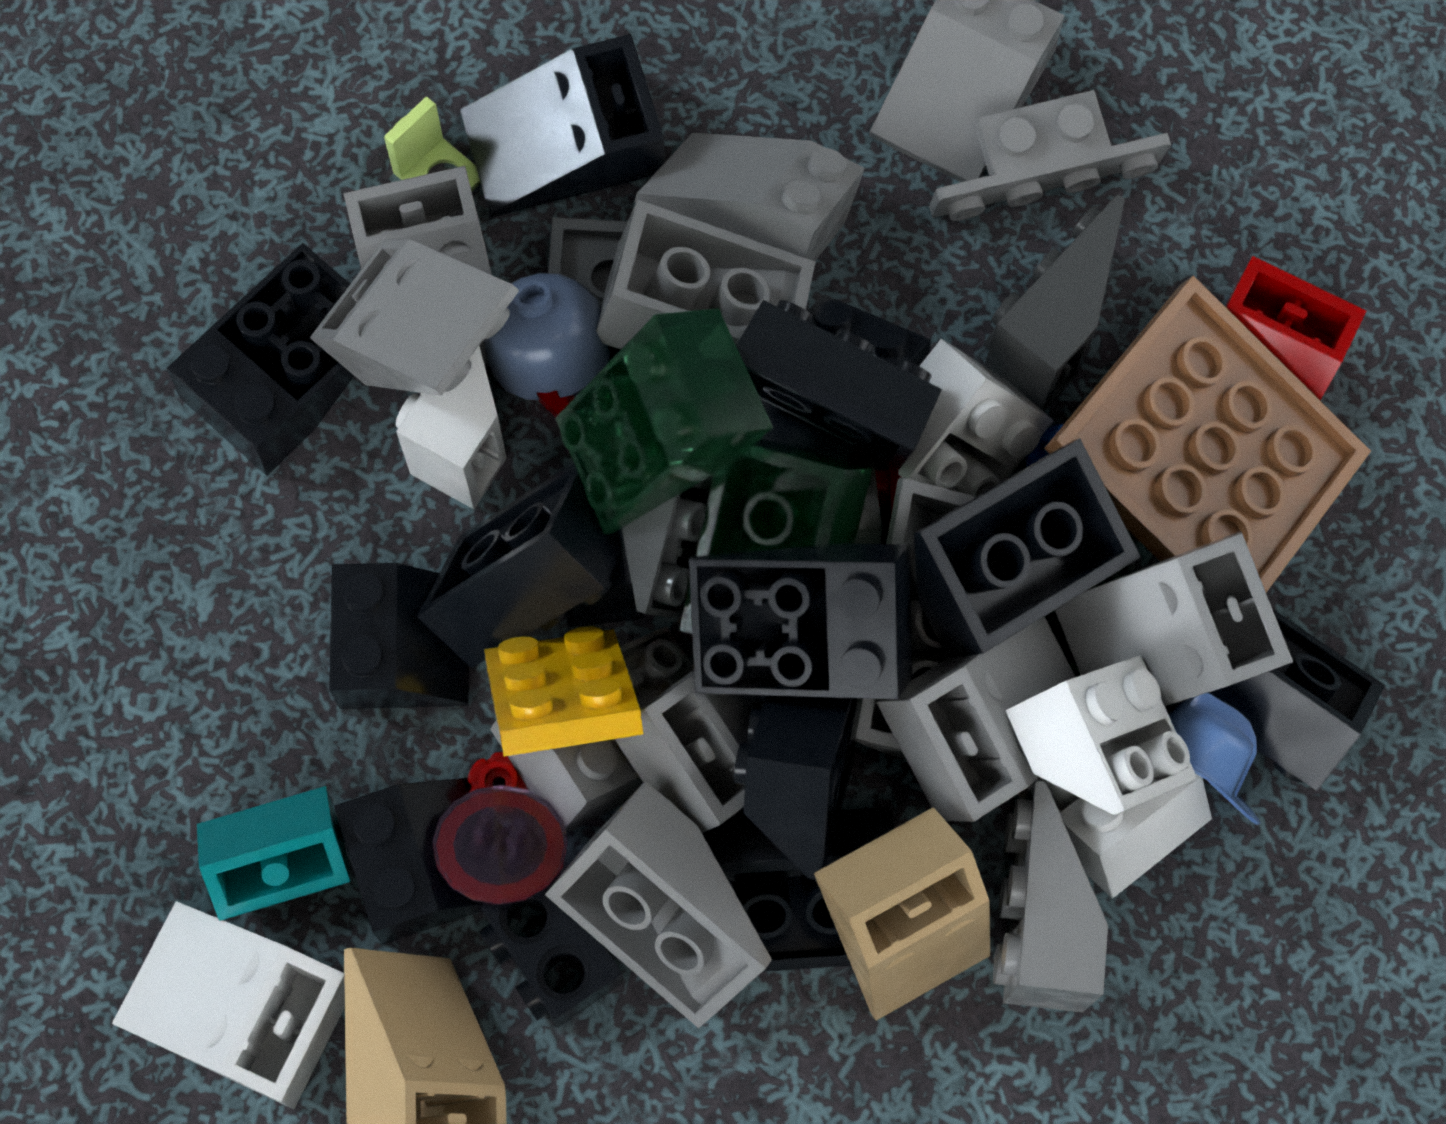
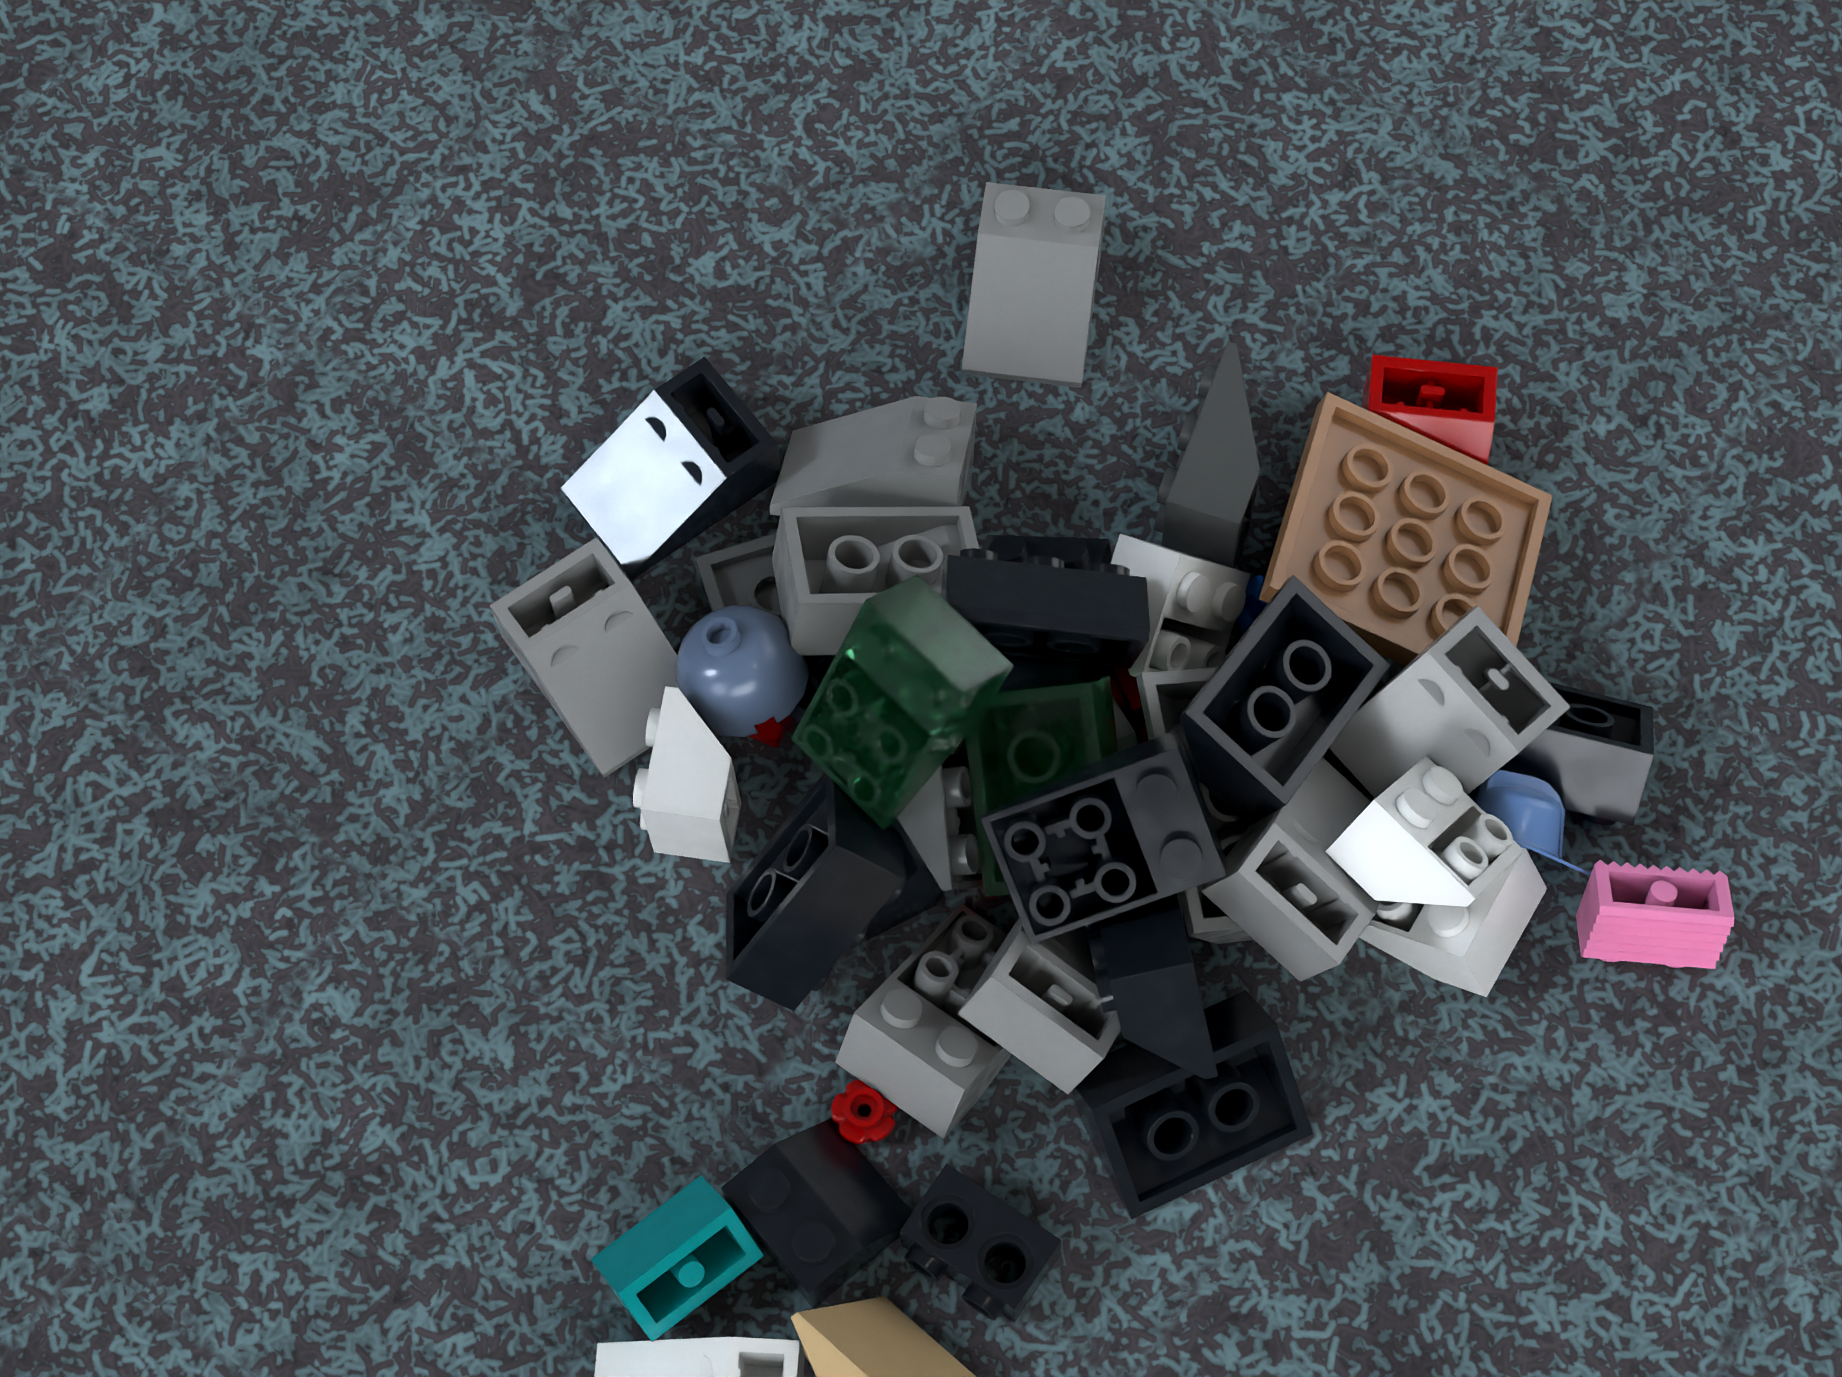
camera: 15 degrees left, 5 degrees down
(259, 369) = (486, 786): black slope -> none
(380, 645) = (701, 1020): black slope -> none
(414, 318) = (615, 696): light grey slope -> none
(418, 145) = (536, 536): yellowish green bracket -> none
(500, 845) = (894, 1164): piece -> none
(561, 691) = (901, 991): yellow plate -> none
(663, 906) = (1077, 1159): light grey slope -> none
(908, 910) = (1309, 1075): tan slope -> none
(1044, 150) = (1134, 327): light grey bracket -> none
(1055, 922) = (1440, 1028): light grey slope -> none
(1301, 884) = (1654, 915): none -> bright pink brick

